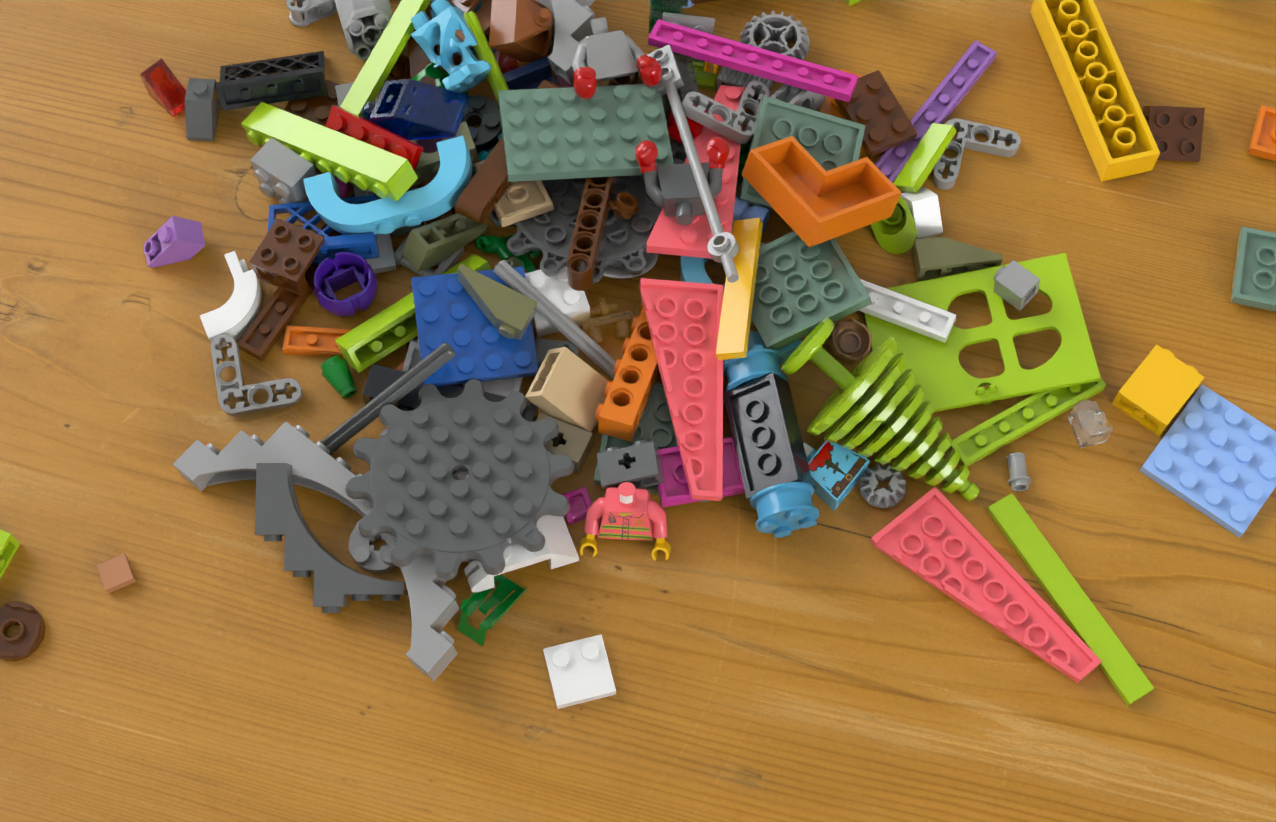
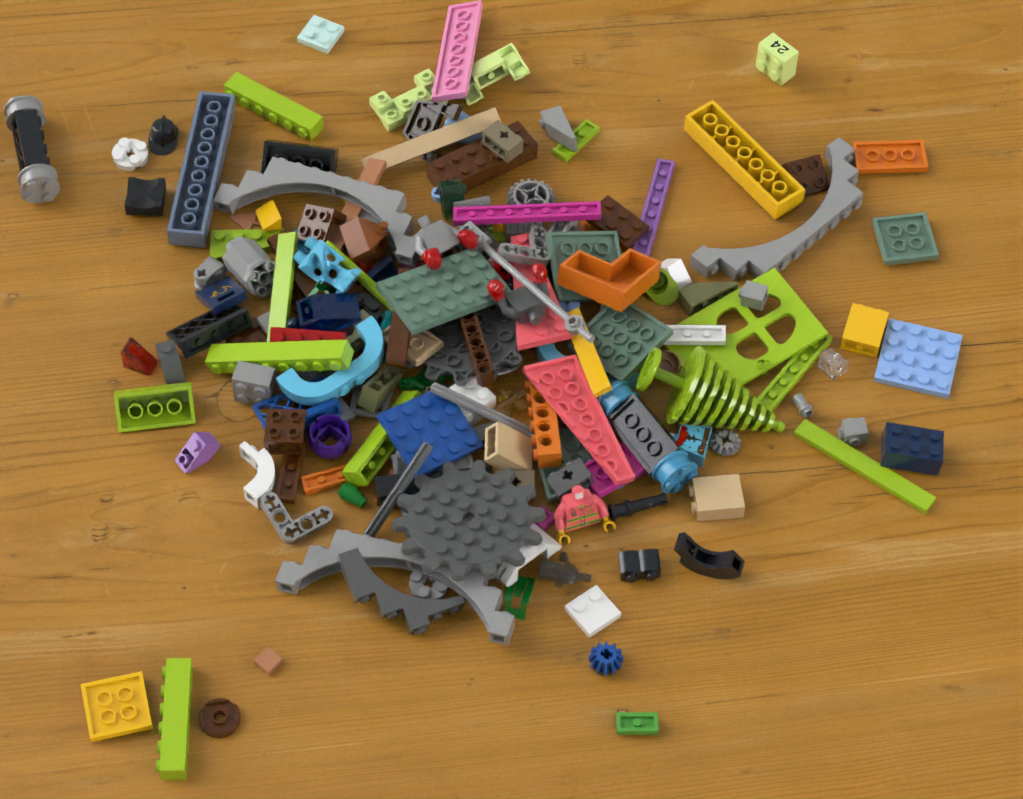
camera: 25 degrees left, 10 degrees down
(153, 162) = (154, 407): none -> lime slope
(307, 34) = (220, 290): none -> dark blue container
(503, 306) = (445, 410): olive slope -> none
(560, 598) = (561, 573): none -> clear smoke piece
(573, 750) = (613, 661): none -> blue gear
(624, 205) = (490, 327): reddish brown plate -> none
(674, 628) = (639, 565): none -> black brick
(700, 535) = (629, 507): none -> black pin
(771, 661) = (706, 562): none -> black arch
(830, 567) = (717, 497): none -> tan brick
(924, 157) = (661, 237): lime tile -> none
(957, 560) = (791, 468): coral wing -> none
(966, 139) = (680, 221): light grey beam -> none
(1074, 539) = (853, 431): none -> light grey brick
(1149, 600) = (912, 448): none -> dark blue brick
(1201, 189) = (757, 260): none -> light grey arch

